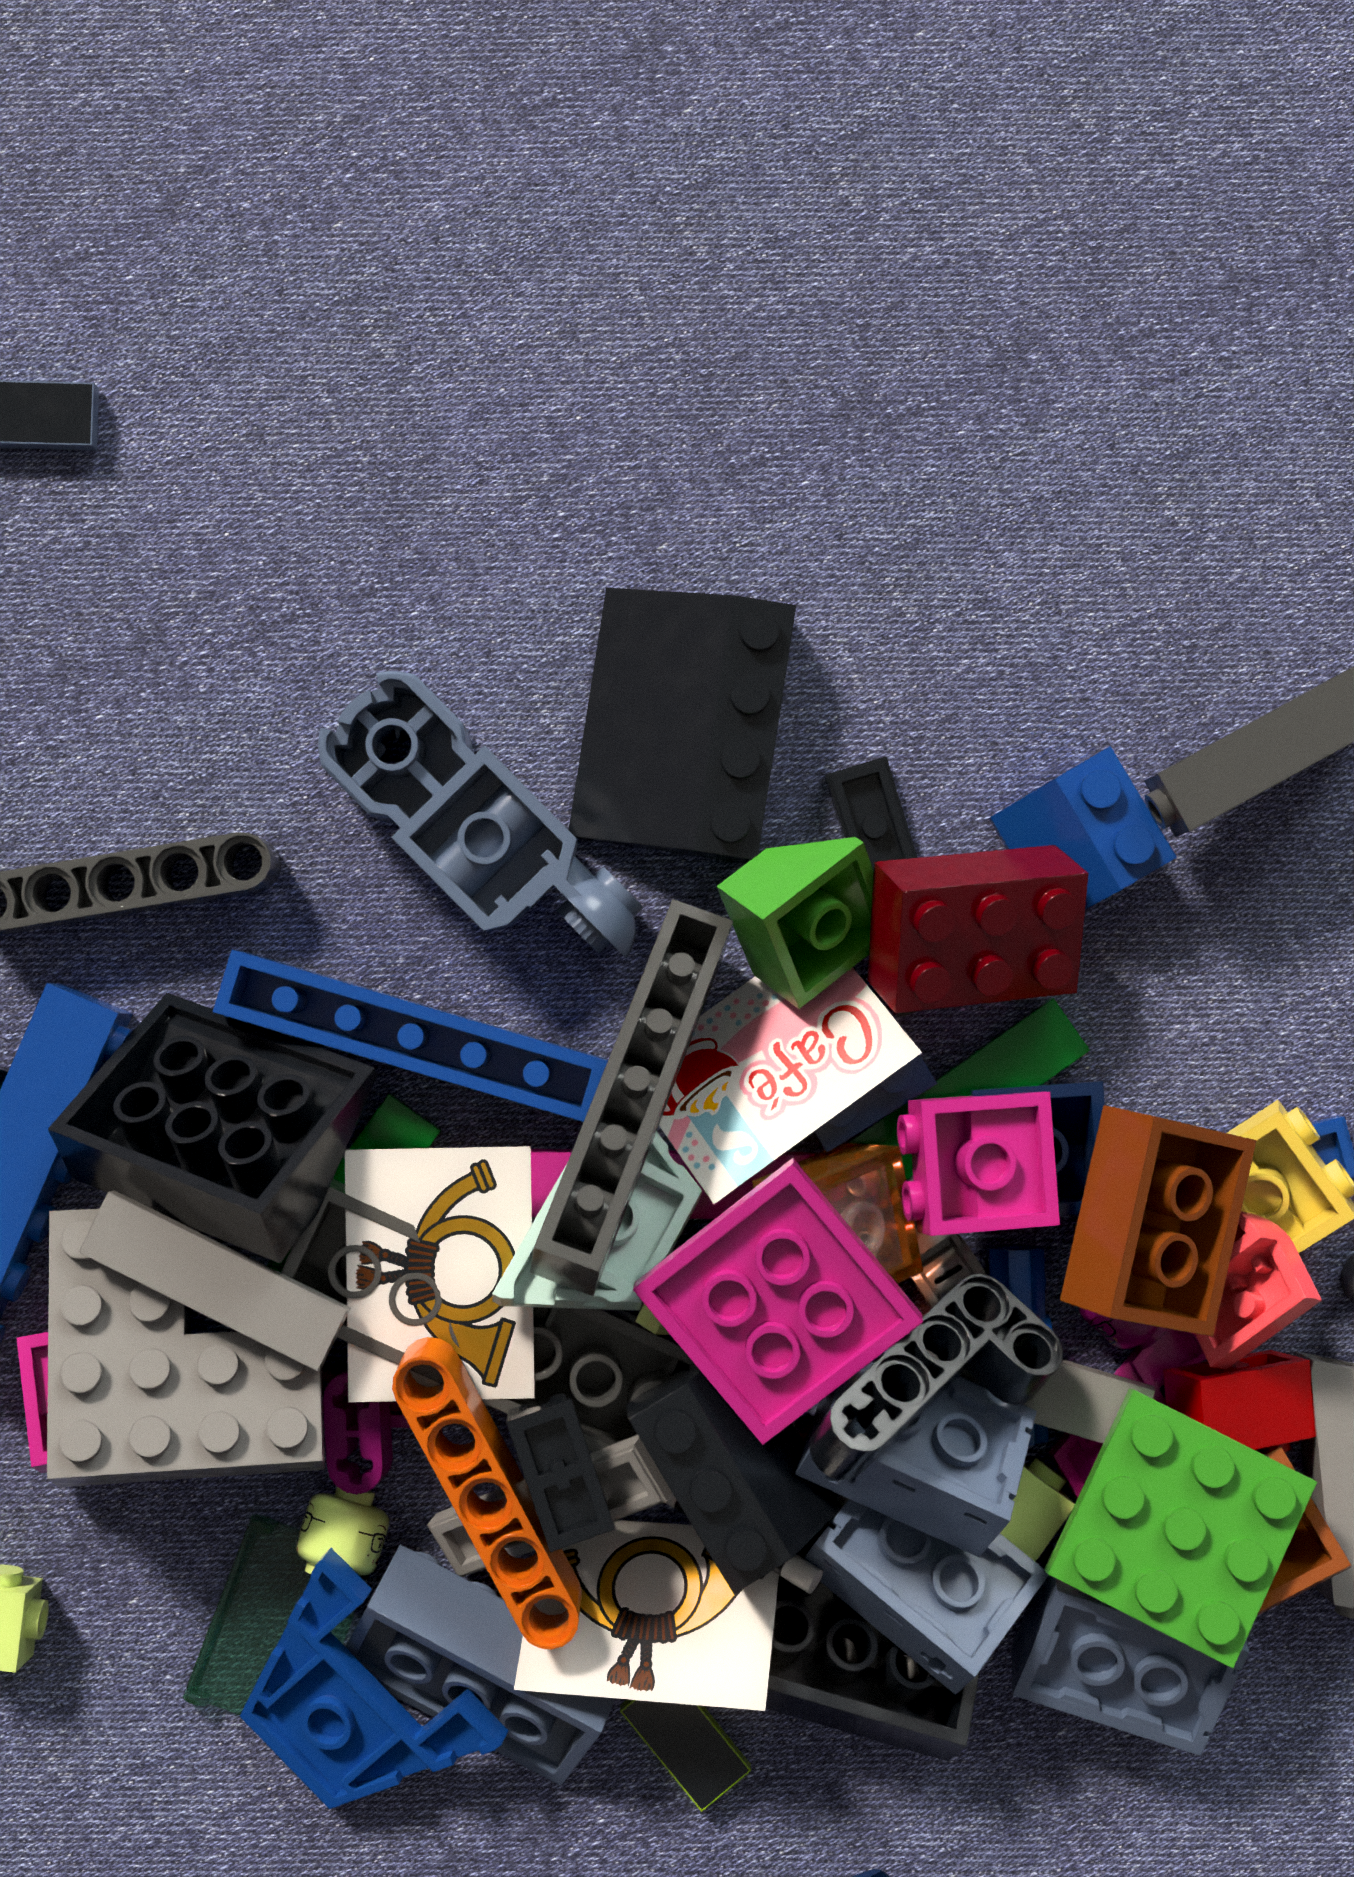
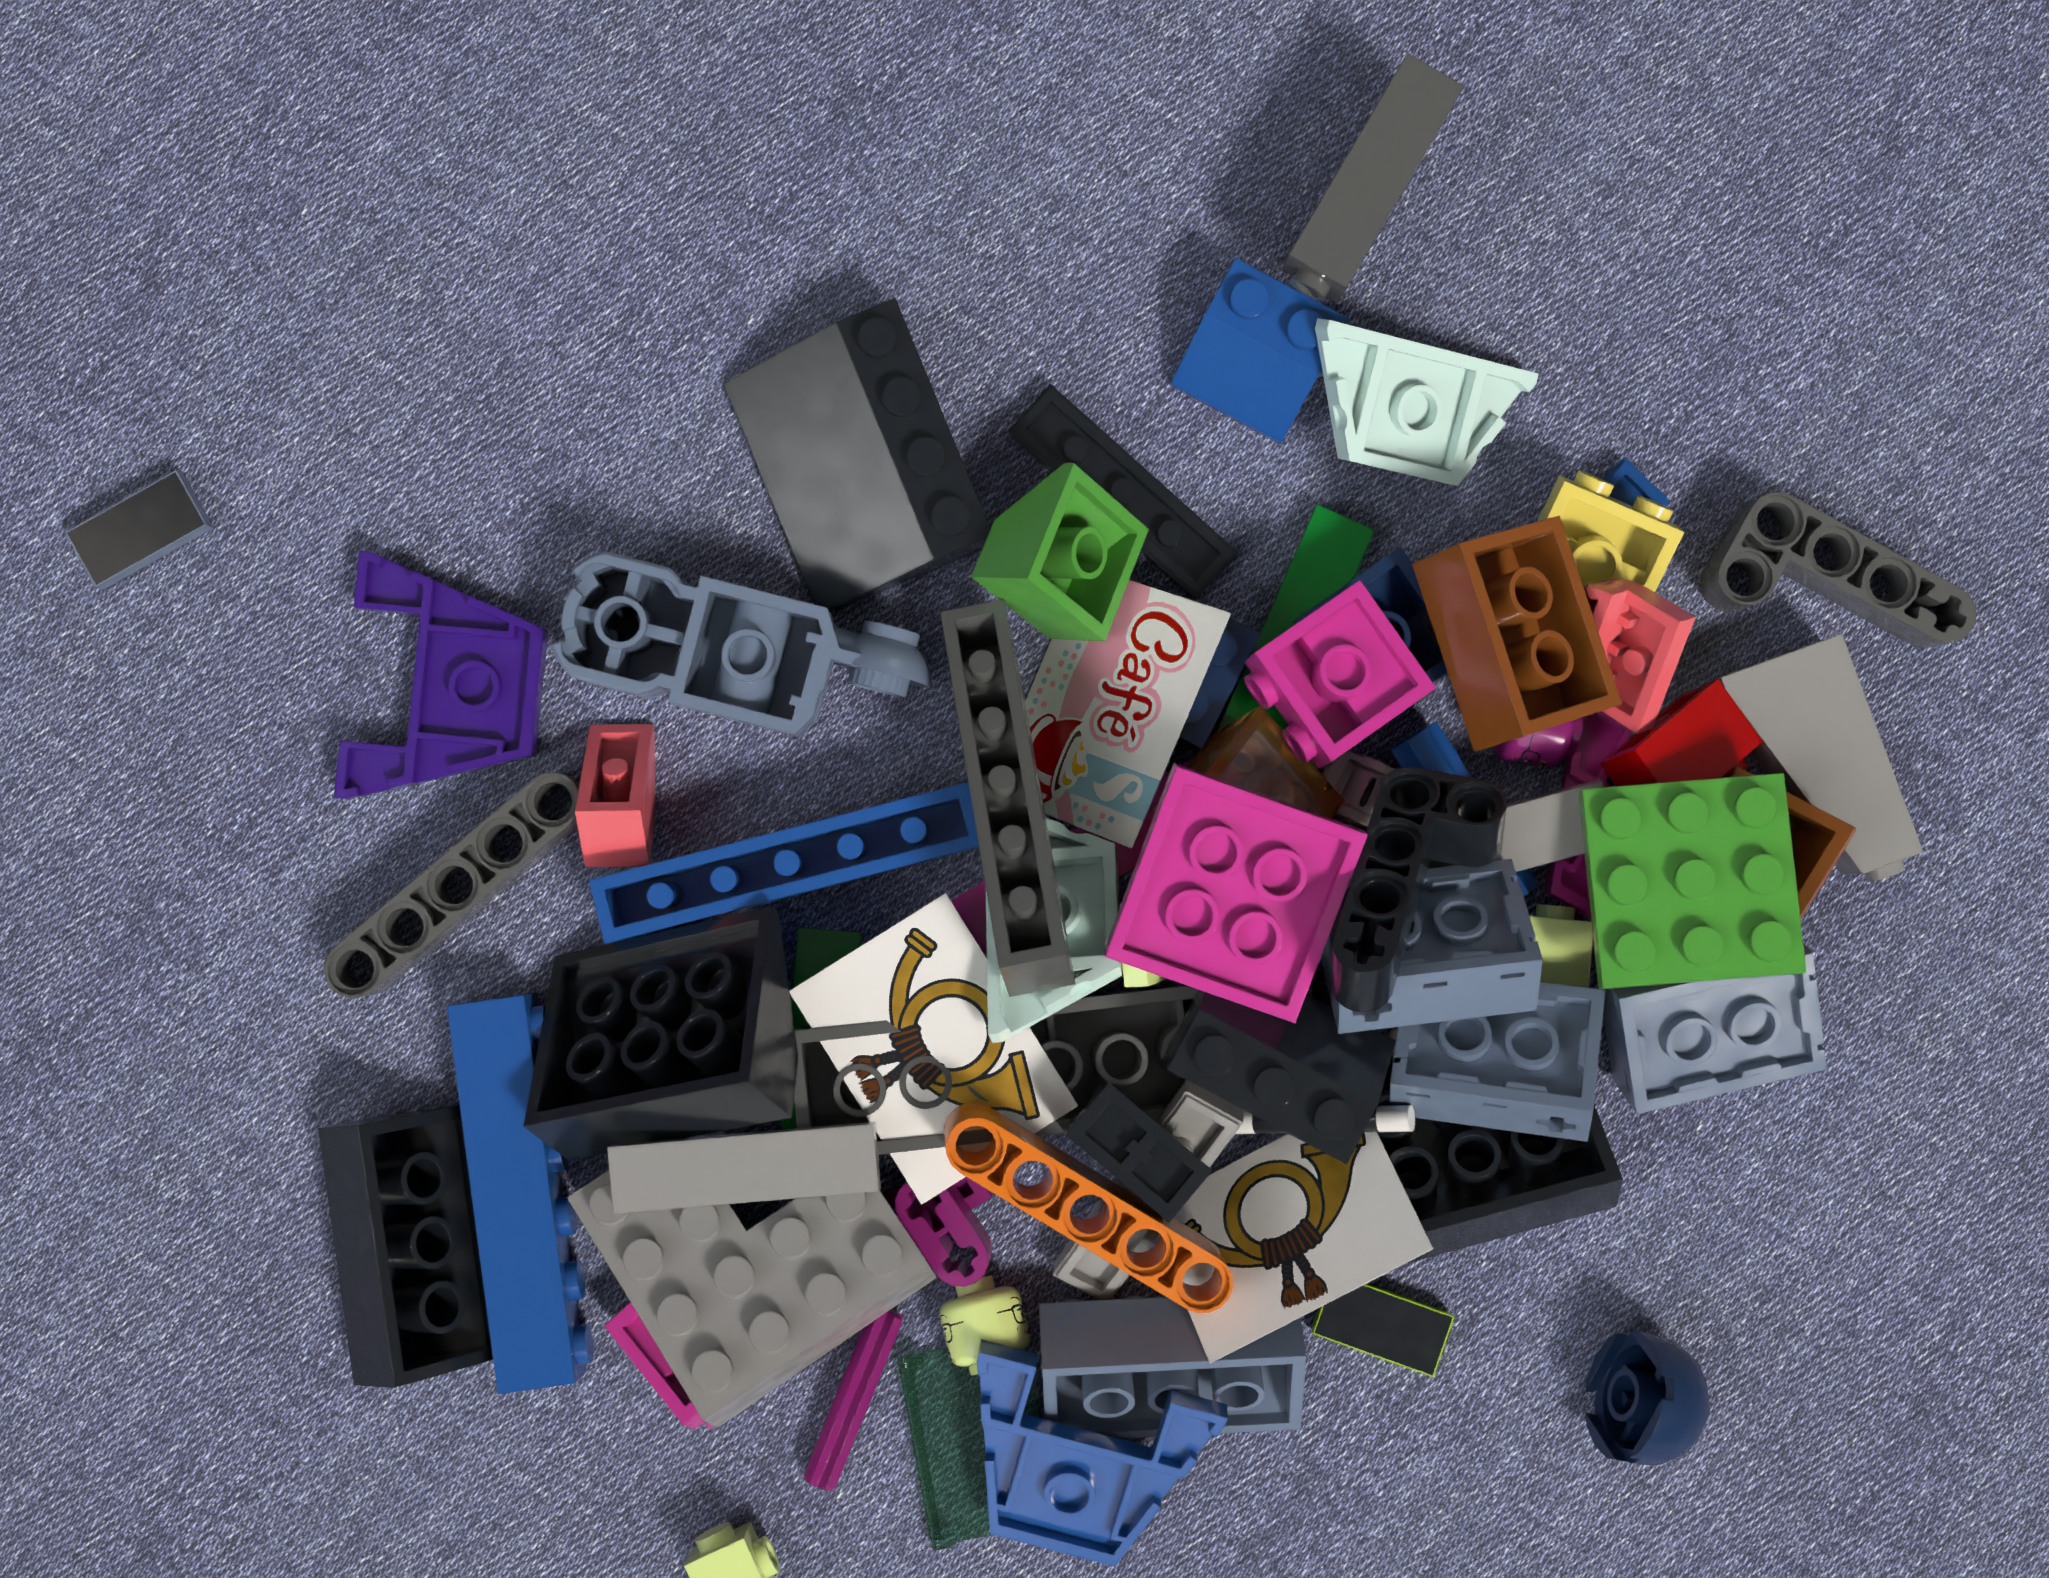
camera: 25 degrees left, 0 degrees up
(189, 1530) = (852, 1401): none -> magenta axle
(234, 718) = (471, 685): none -> dark purple wing
(302, 888) = (617, 796): none -> coral slope
(976, 927) = (1214, 480): dark red brick -> none
(1188, 961) = (1412, 402): none -> light aqua wing

